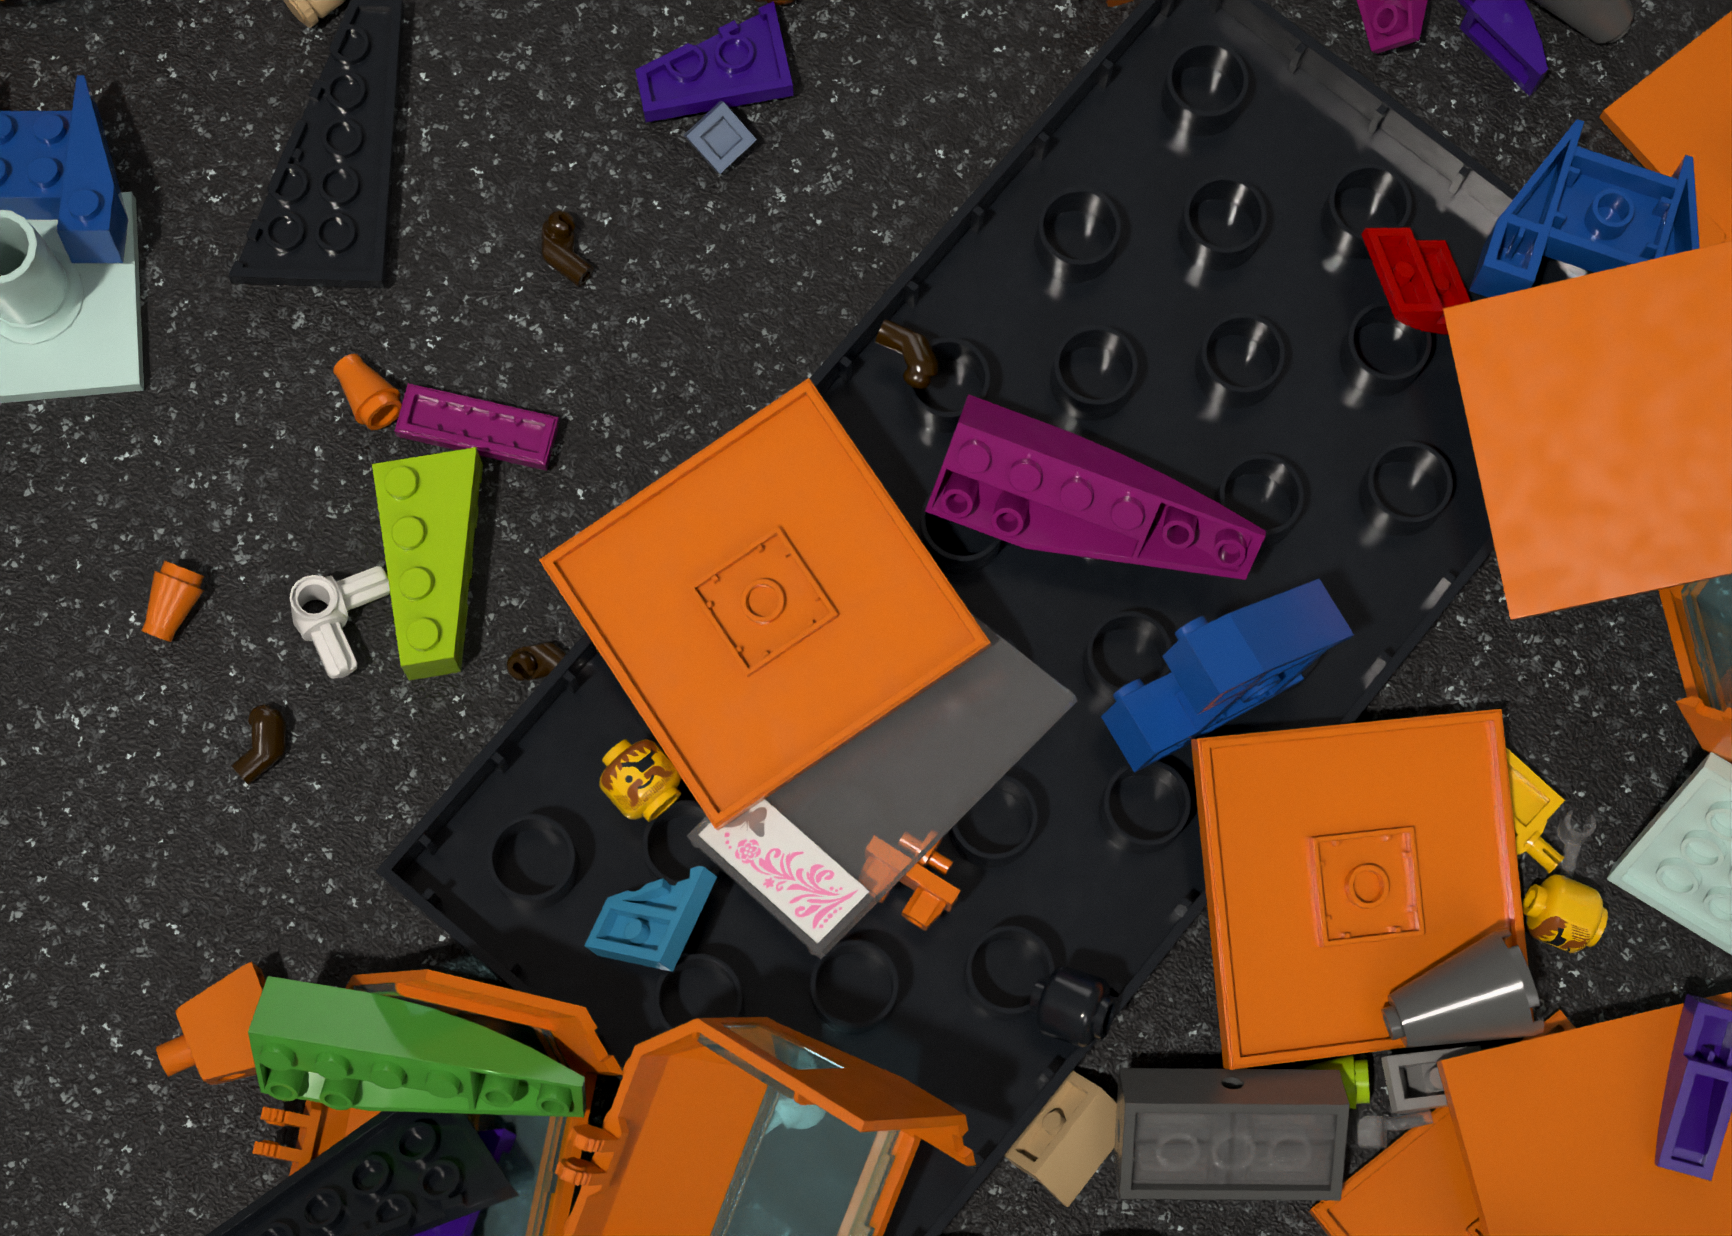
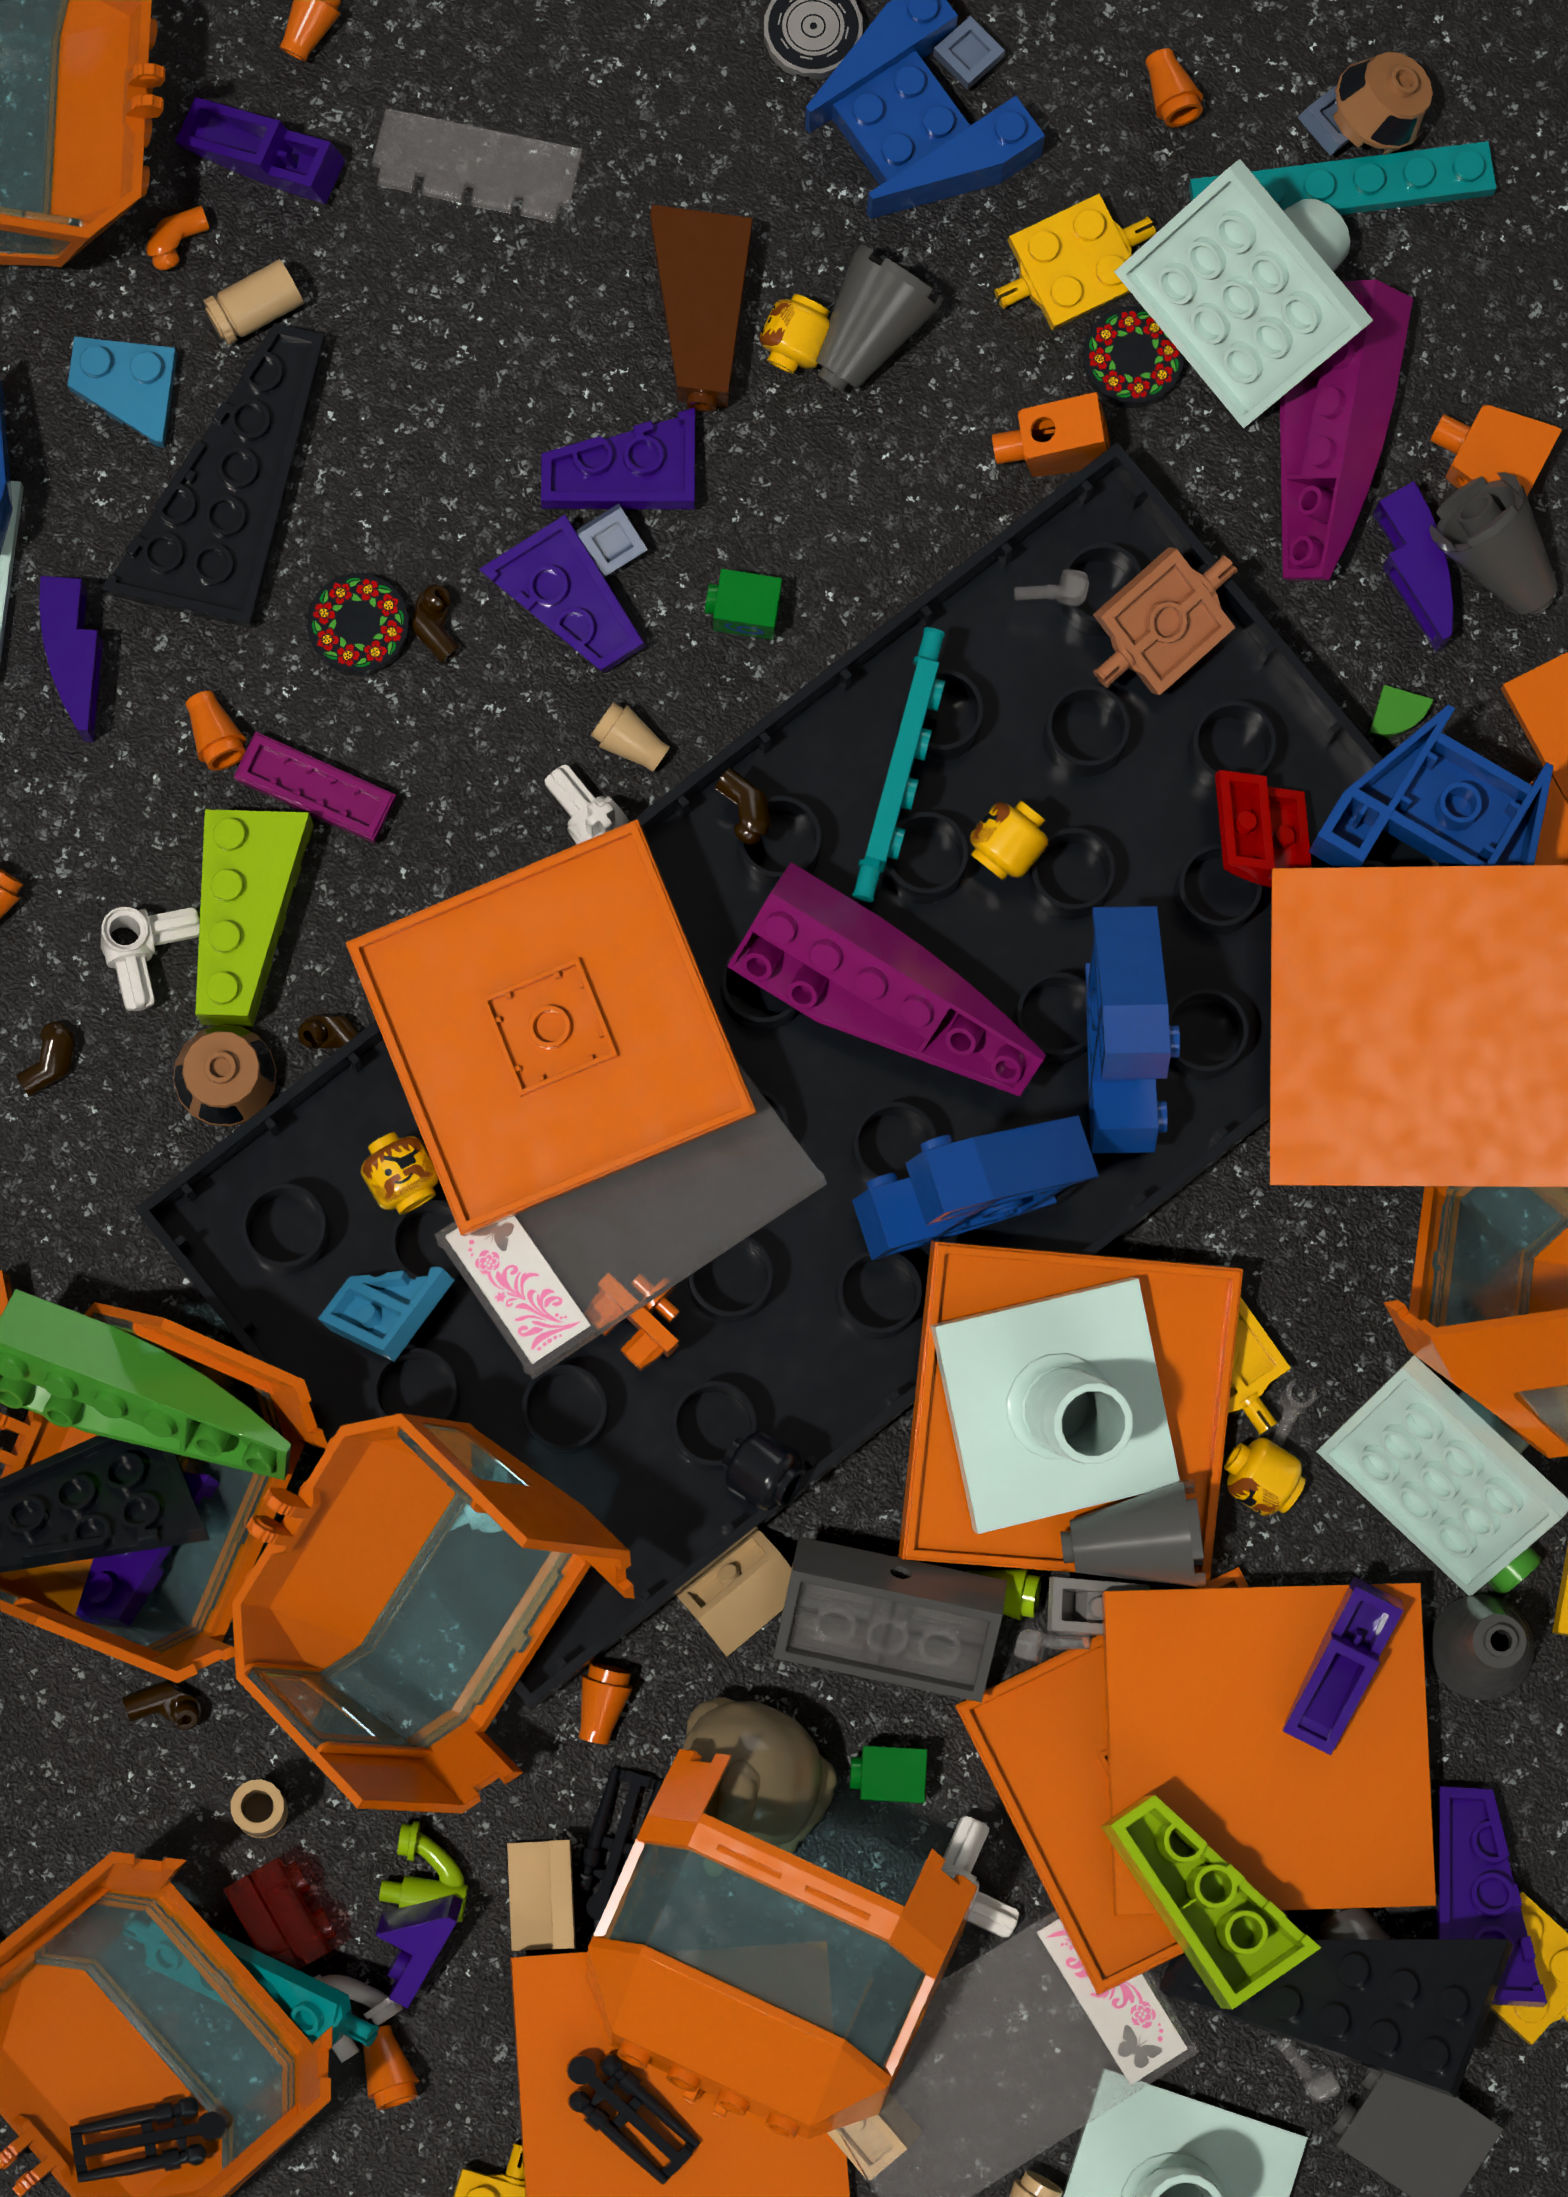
camera: 10 degrees right, 5 degrees up
(211, 339) = (71, 650): none -> dark purple slope
(218, 80) = (126, 381): none -> dark azure wing
(441, 723) = (224, 1075): none -> medium nougat cone
(489, 264) = (358, 624): none -> tile
(687, 195) = (567, 593): none -> dark purple wing
(740, 390) = (588, 814): none -> white axle
(776, 319) = (629, 737): none -> tan cone
(862, 172) = (744, 603): none -> green brick
(1057, 304) = (899, 786): none -> teal plate
(1176, 333) = (1009, 839): none -> yellow head
(1180, 90) = (1071, 590): none -> clear hand
(1276, 100) = (1164, 620): none -> nougat plate
(1343, 484) = (1127, 1030): none -> blue wedge
(1349, 881) = (1055, 1404): none -> light aqua piece
(1510, 154) = (1397, 712): none -> bright green tile

